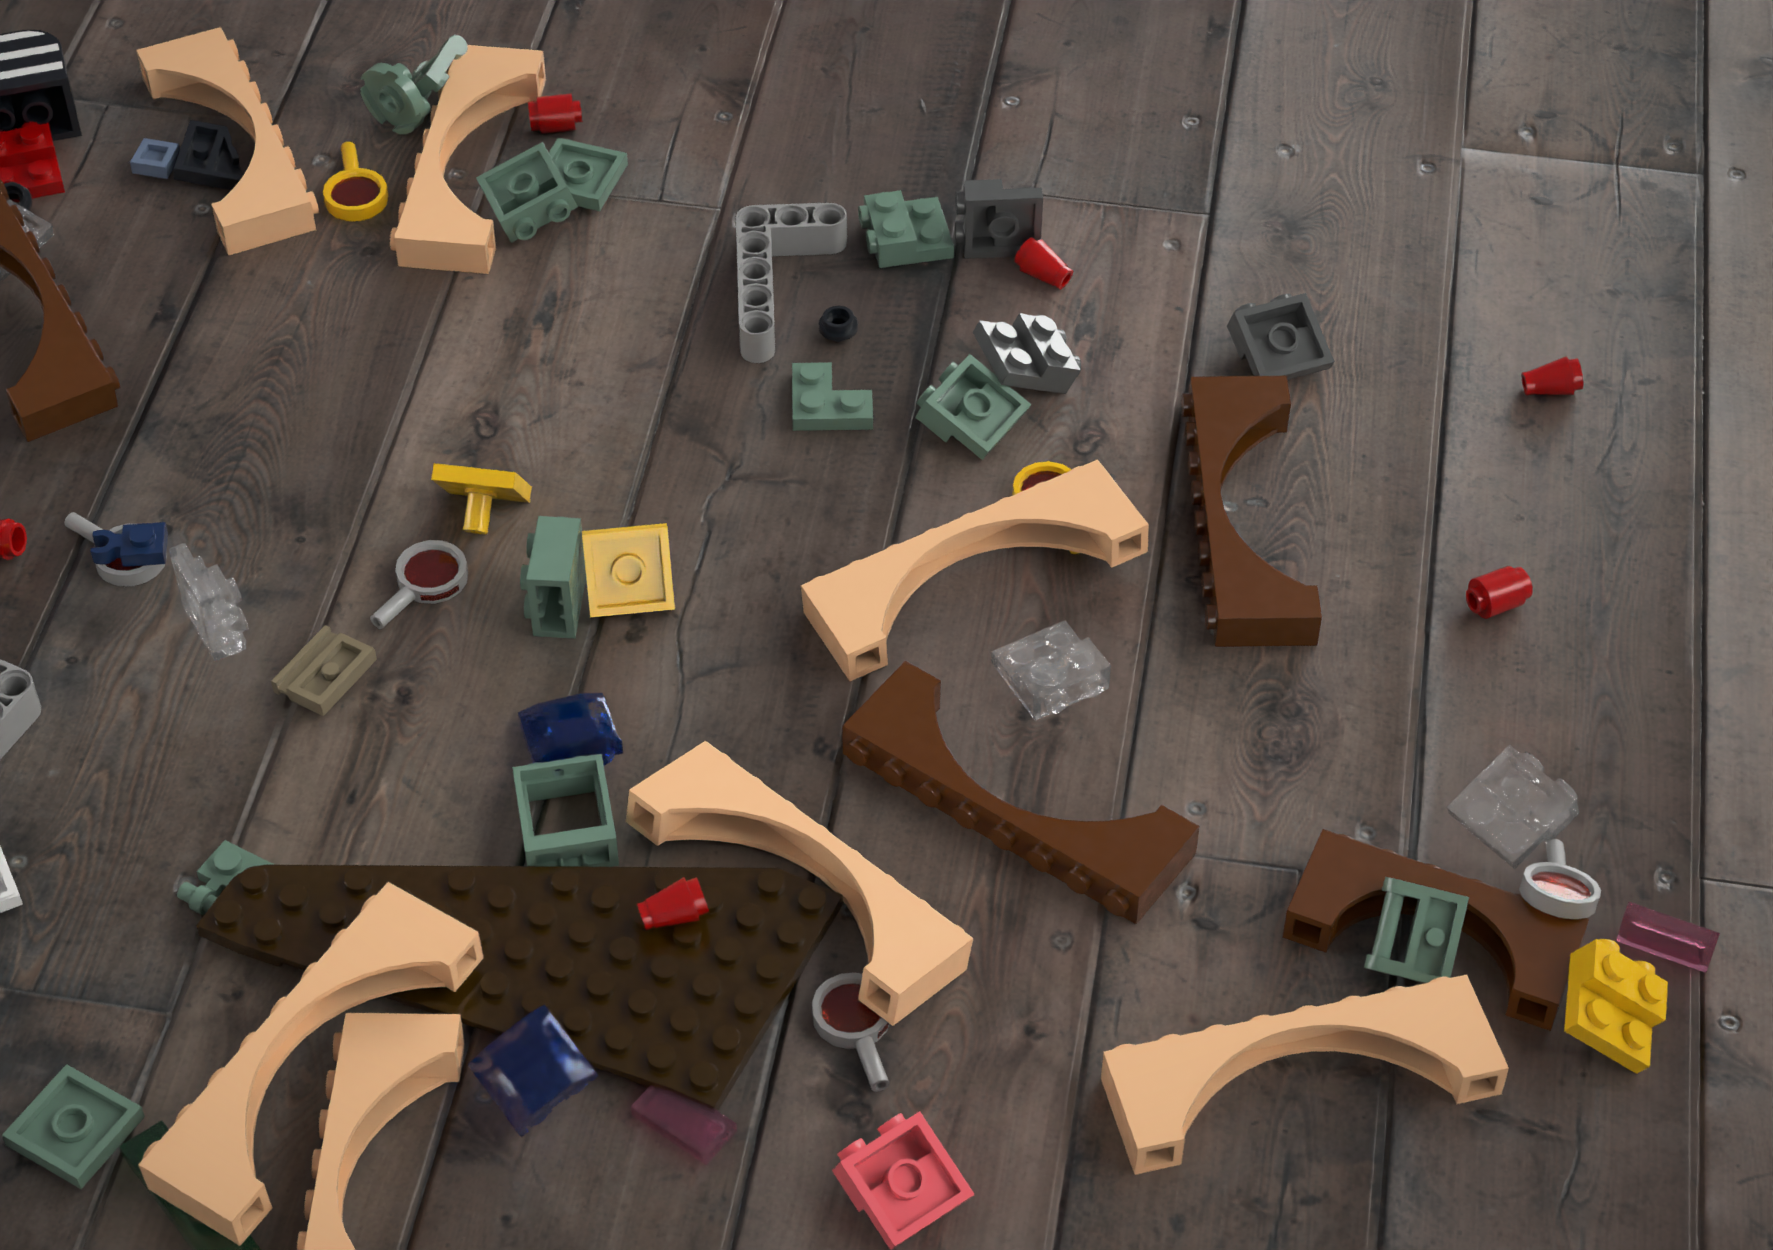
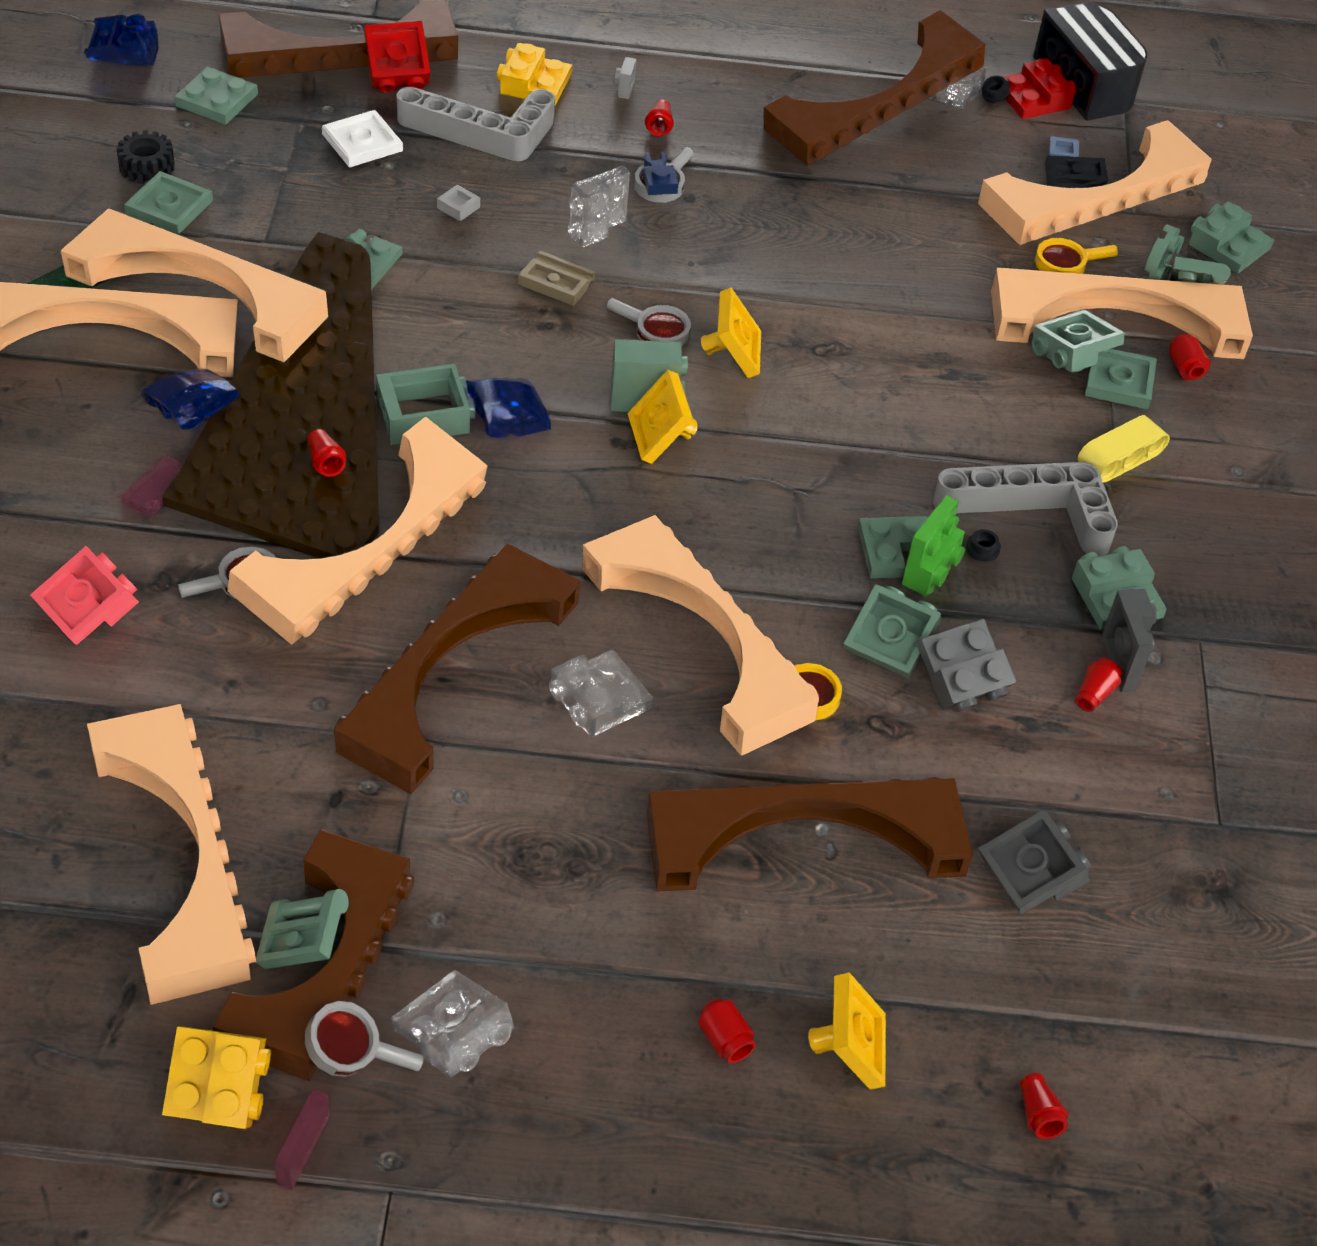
camera: 80 degrees right, 0 degrees up
(142, 770) = (458, 202): none -> light grey plate
(344, 48) = (1229, 237): none -> sand green plate
(697, 189) = (1124, 447): none -> light yellow beam
(866, 350) = (934, 549): none -> bright green plate
(1502, 488) = (856, 1032): none -> yellow tile

